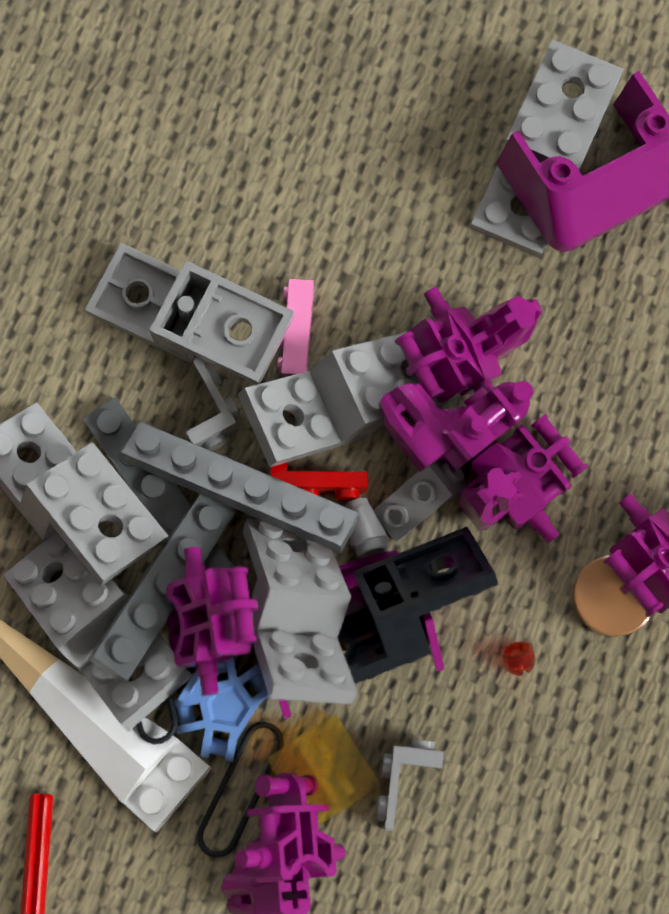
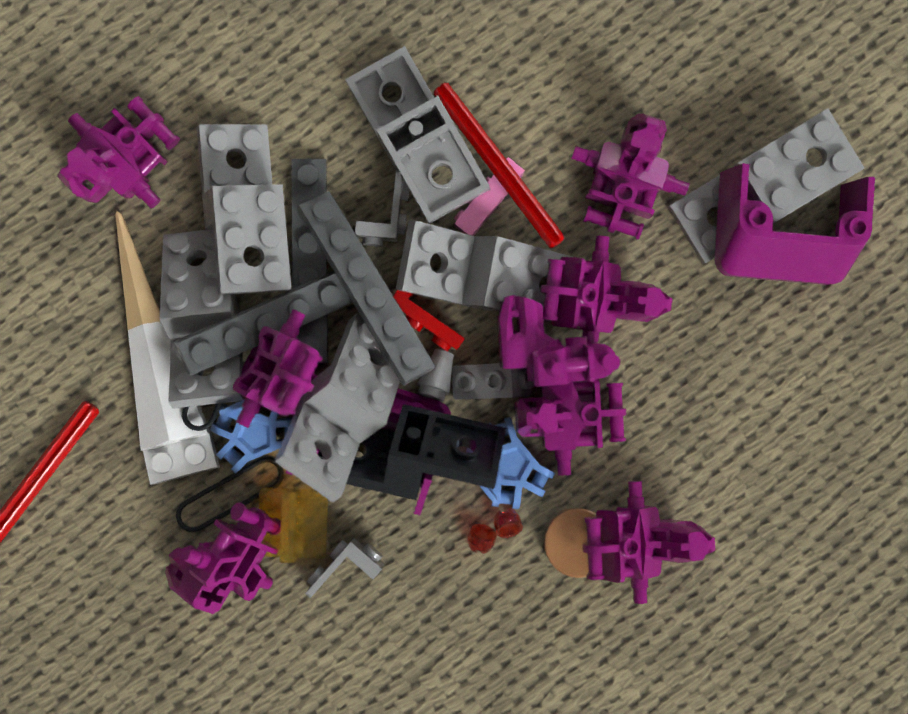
camera: 30 degrees right, 10 degrees up
(296, 293) = (499, 166): none -> red axle
(414, 220) = (629, 175): none -> magenta piece
(506, 562) = (514, 470): none -> medium blue piece
(539, 630) = (507, 523): none -> clear red hinge

